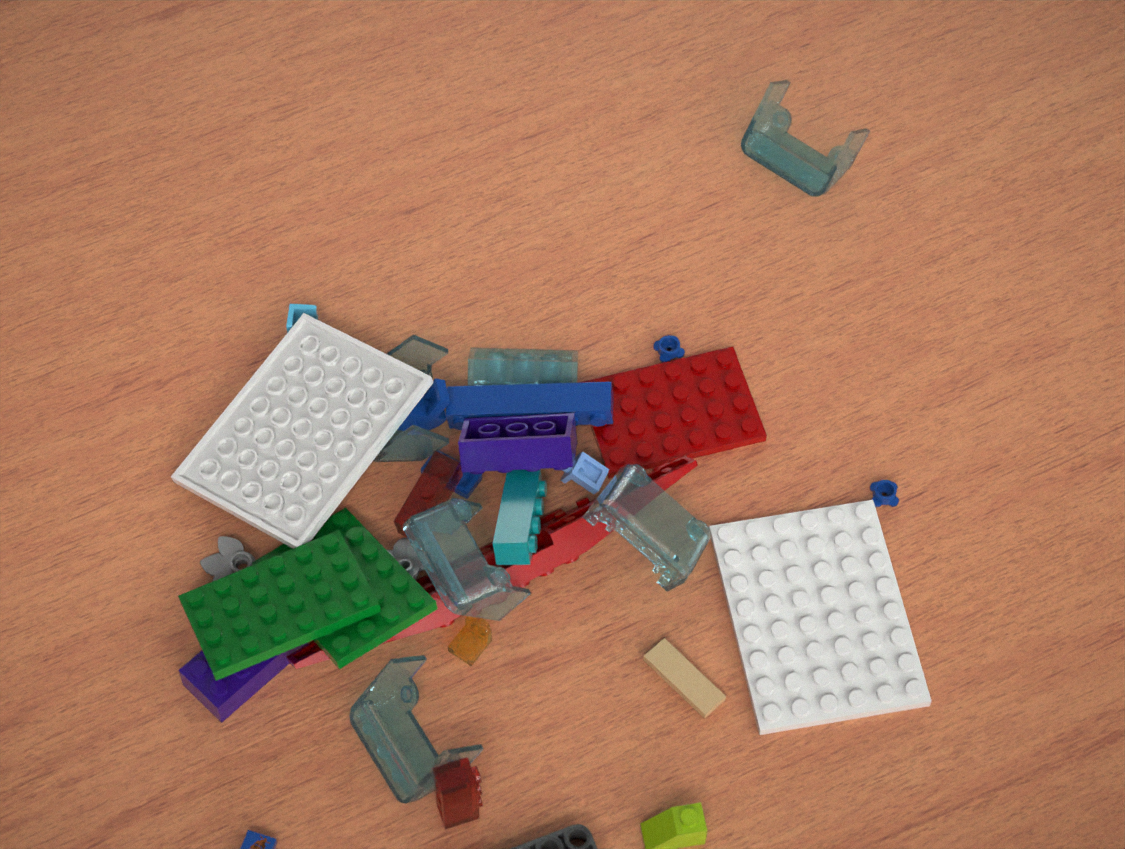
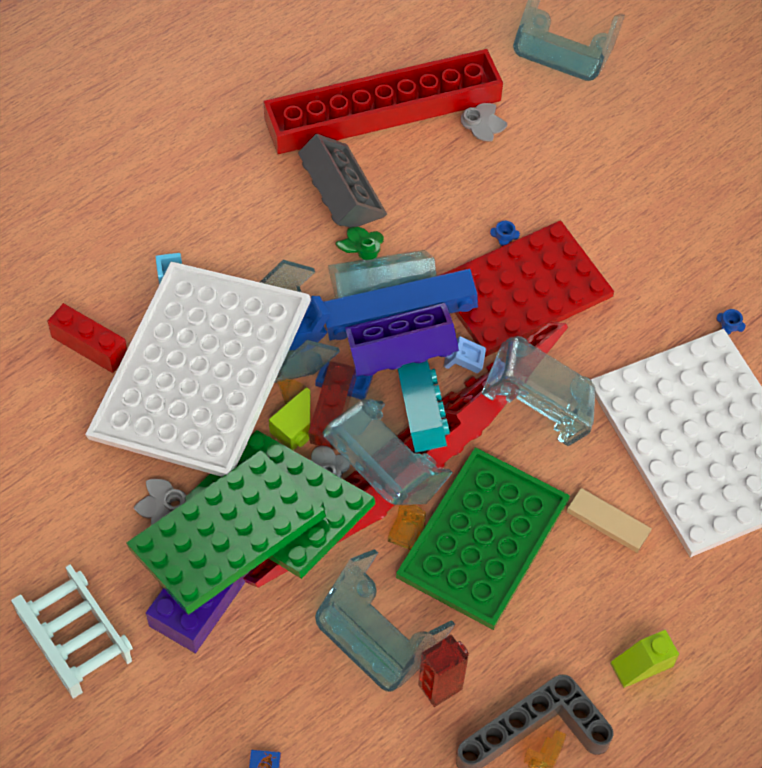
camera: 15 degrees left, 0 degrees up
(84, 693) = (58, 654): none -> light aqua fence
(199, 376) = (87, 337): none -> red brick
(383, 505) = (293, 421): none -> lime slope
(395, 475) = (290, 389): none -> clear yellow tile
(509, 260) = (341, 182): none -> dark grey slope
(512, 330) = (361, 242): none -> green plate
(546, 667) = (483, 538): none -> green plate
(579, 179) = (383, 100): none -> red brick
(685, 221) = (483, 121): none -> light grey plate

